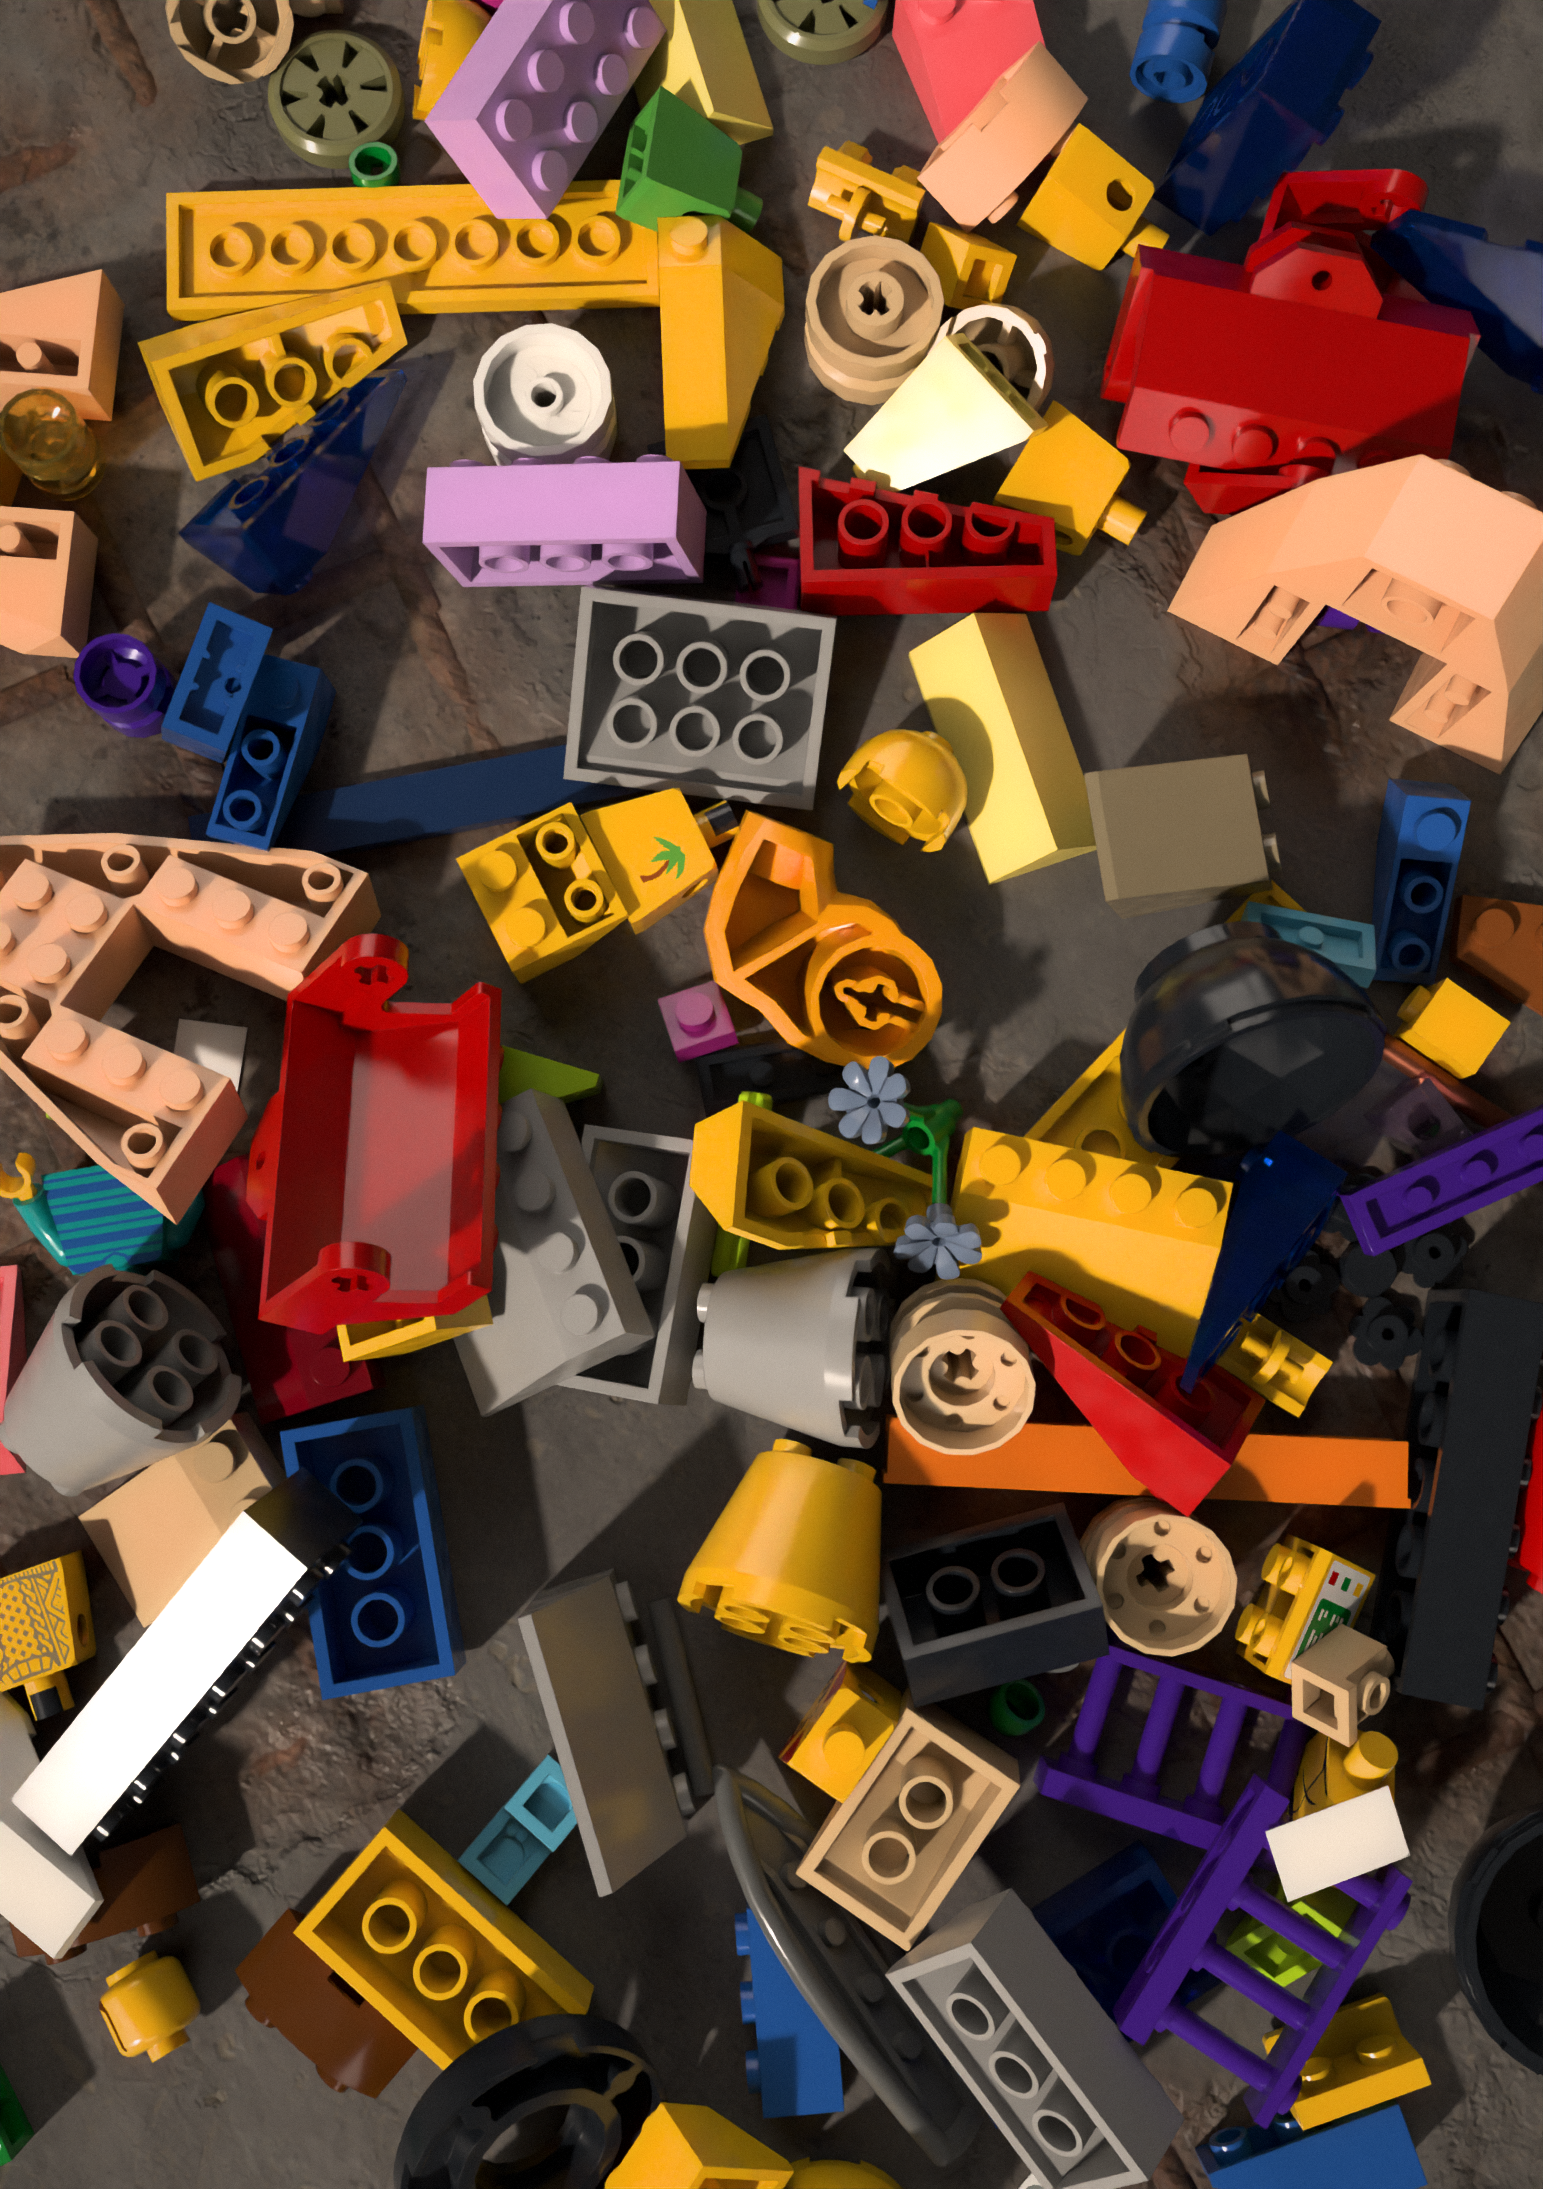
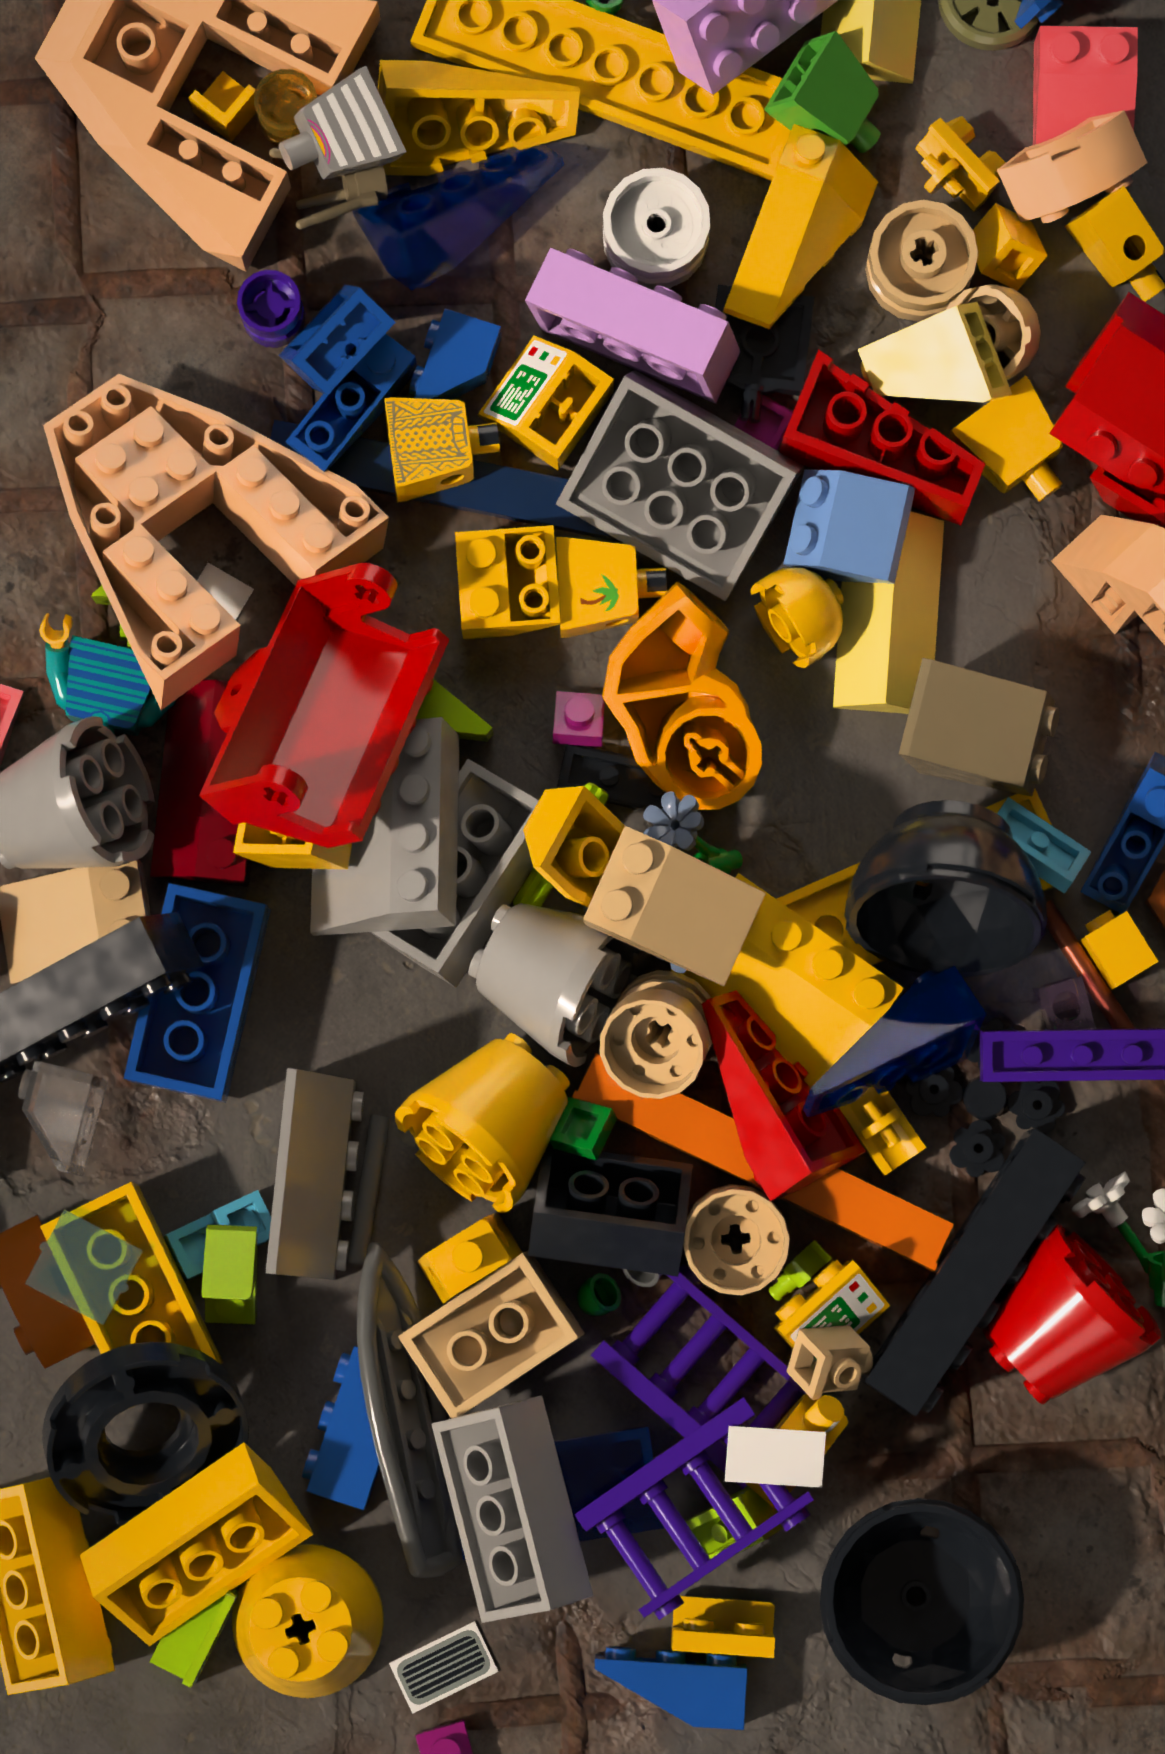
camera: 25 degrees right, 0 degrees up
(121, 430) = (344, 130): none -> light grey torso
(176, 496) = (359, 189): none -> dark tan plant
(267, 1774) = (63, 1112): none -> clear slope
(368, 1963) = (84, 1267): none -> clear light blue piece
(376, 656) = (458, 356): none -> blue slope
(388, 766) = (433, 444): none -> yellow torso
(504, 659) = (548, 400): none -> yellow slope
(555, 1880) = (230, 1274): none -> lime slope
(915, 1518) = (583, 1128): none -> green plate
(920, 1204) = (673, 906): none -> tan slope
(924, 658) = (849, 526): none -> medium blue slope
(1246, 1554) = (800, 1270): none -> lime piece

